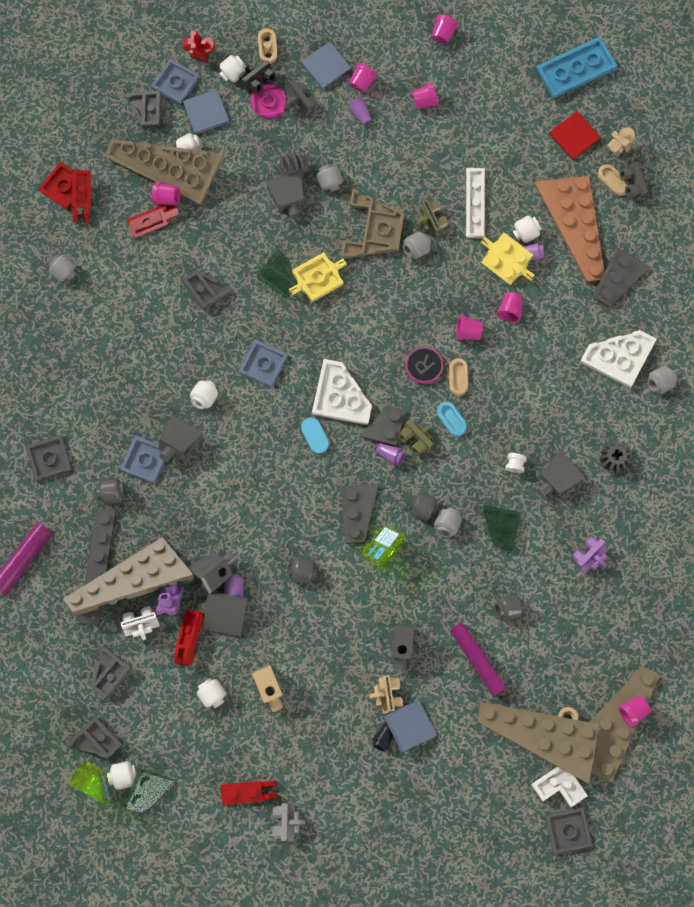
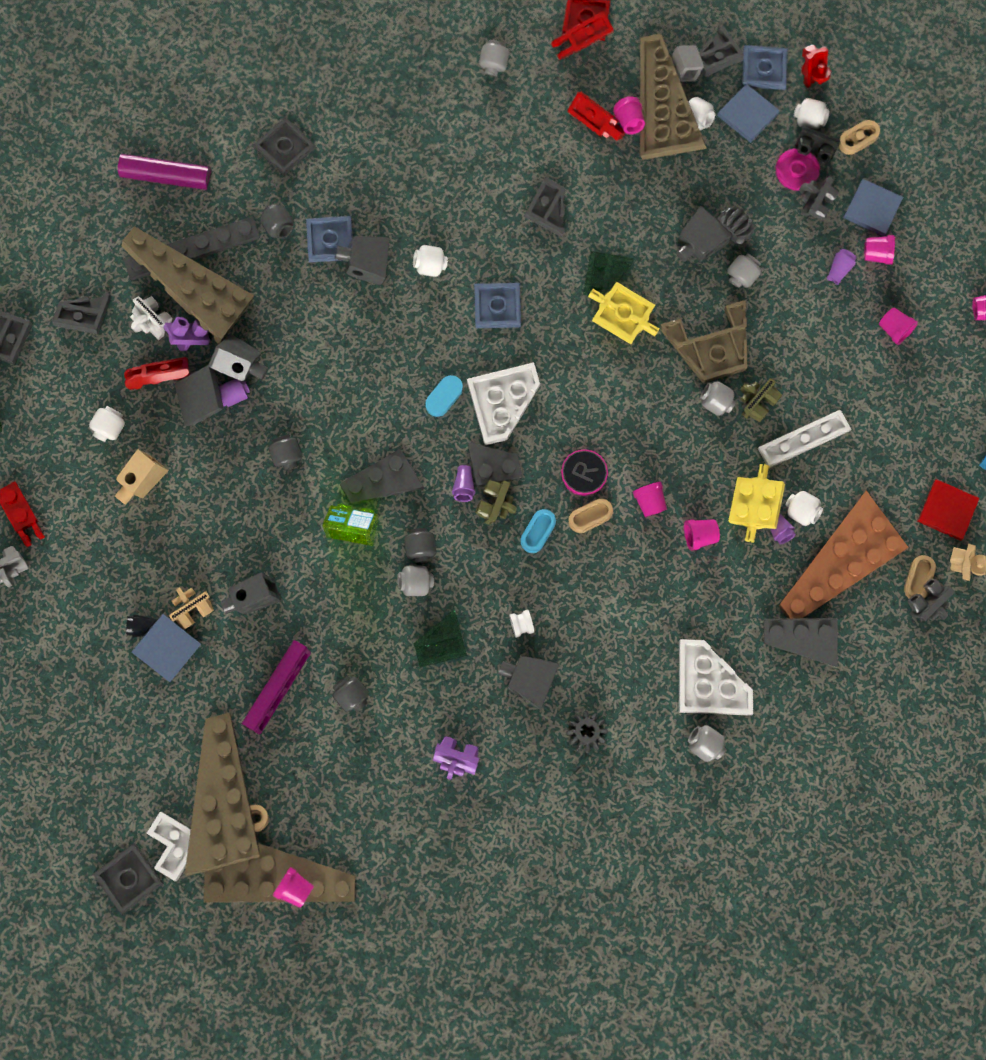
camera: 60 degrees right, 0 degrees up
(145, 132) = (687, 62): none -> light grey brick

